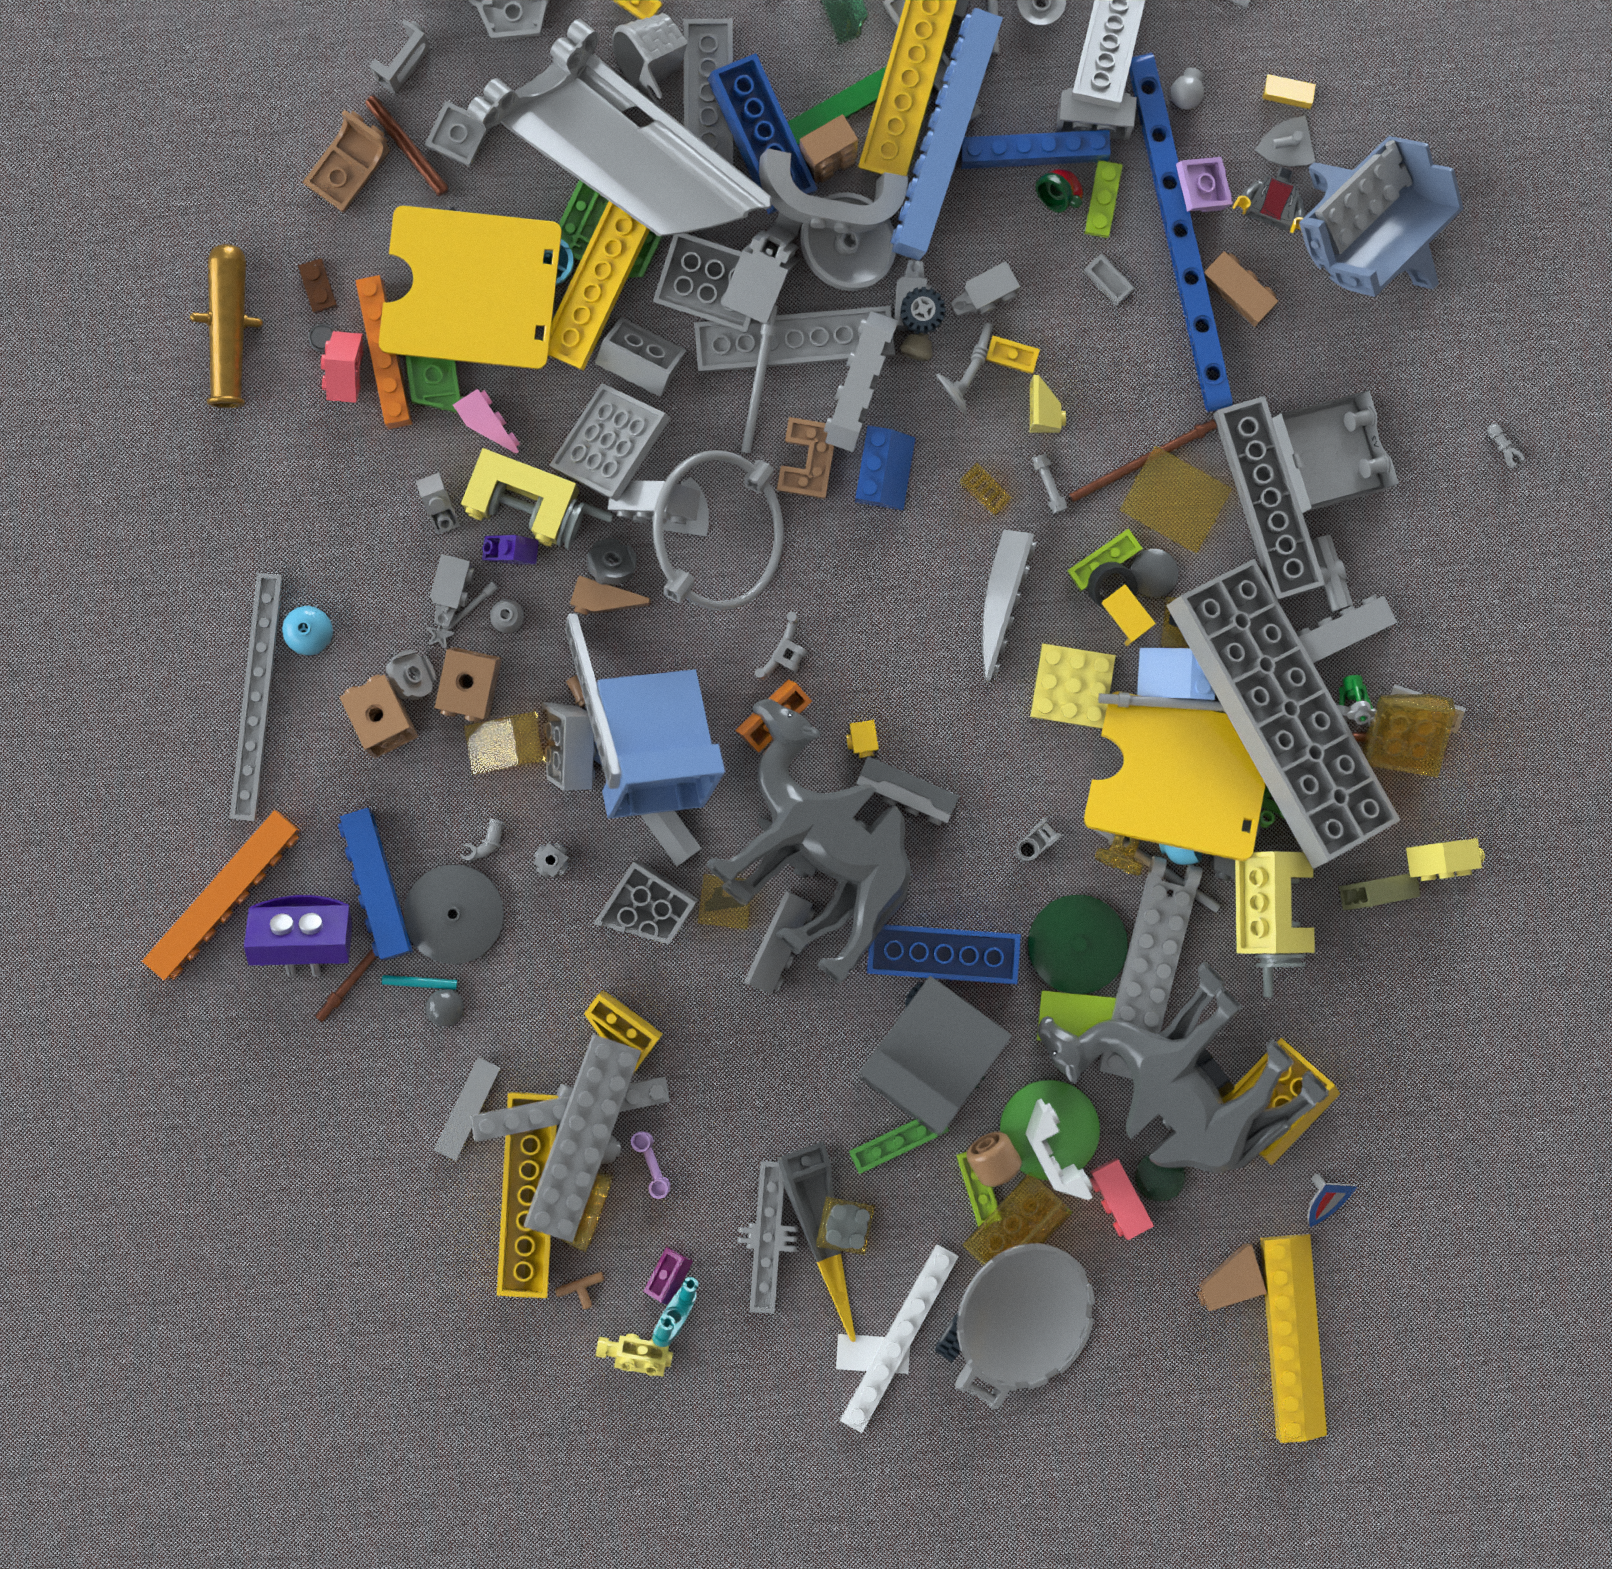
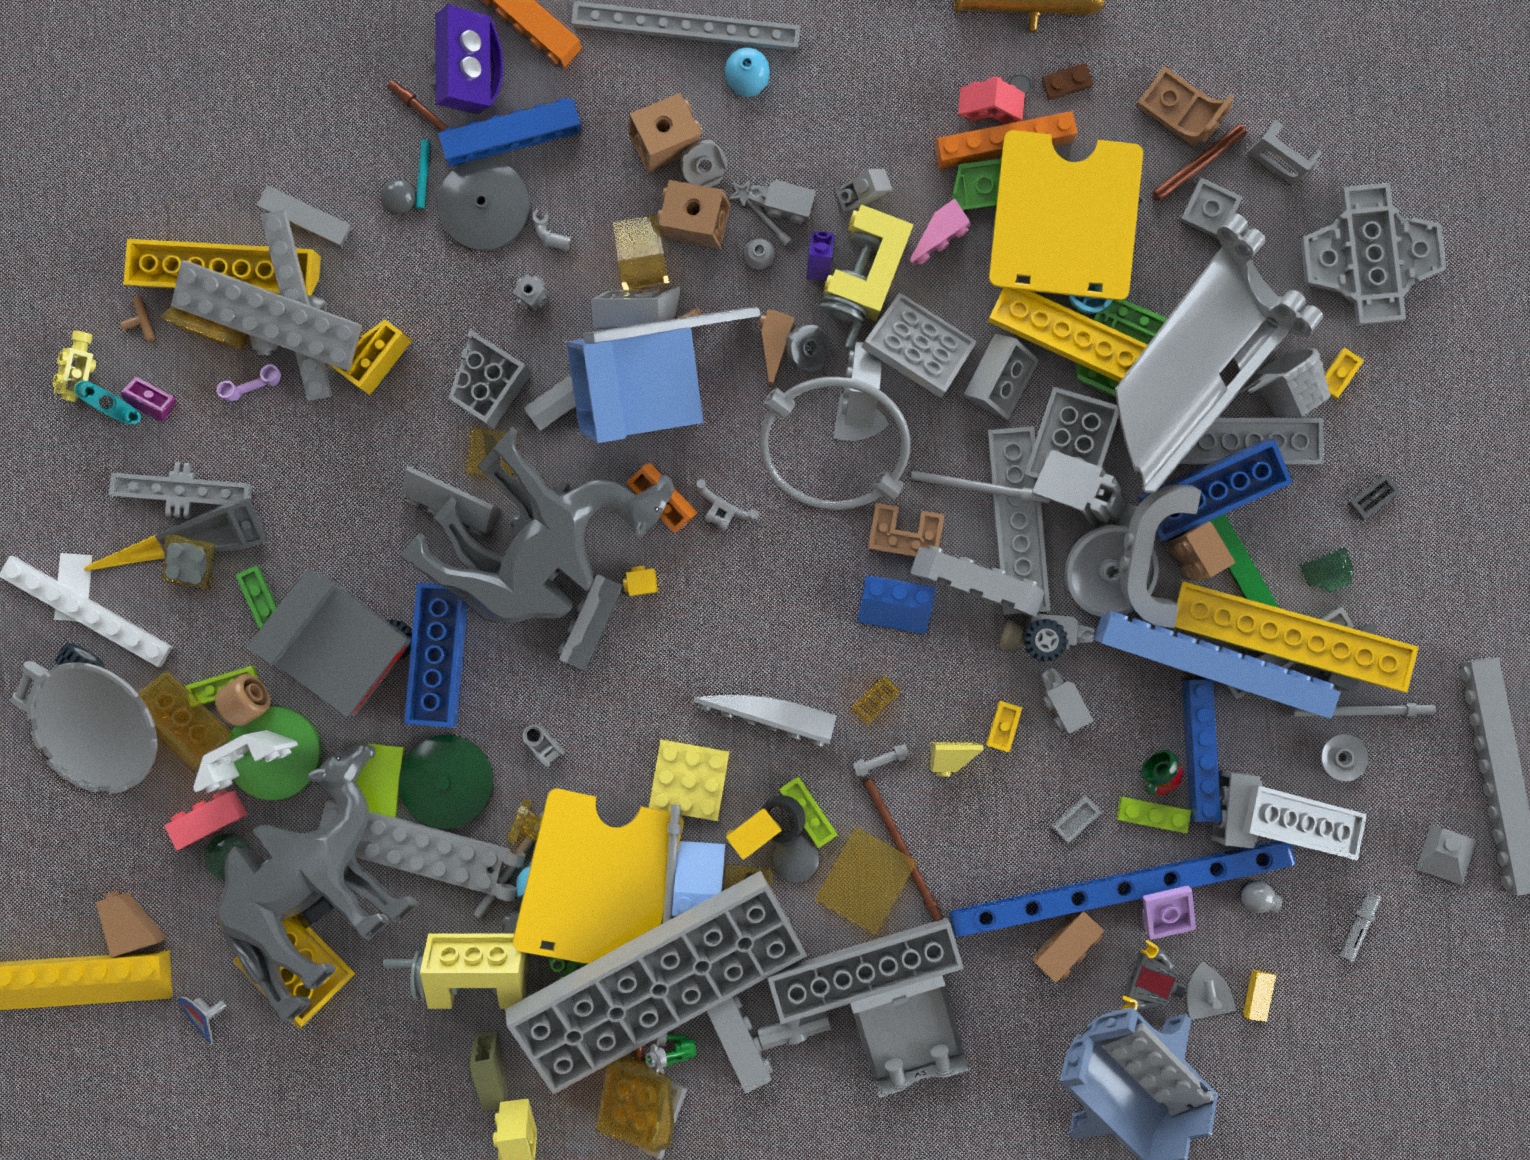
camera: 95 degrees right, 0 degrees up
(958, 389) = (1003, 694): light grey dish -> none

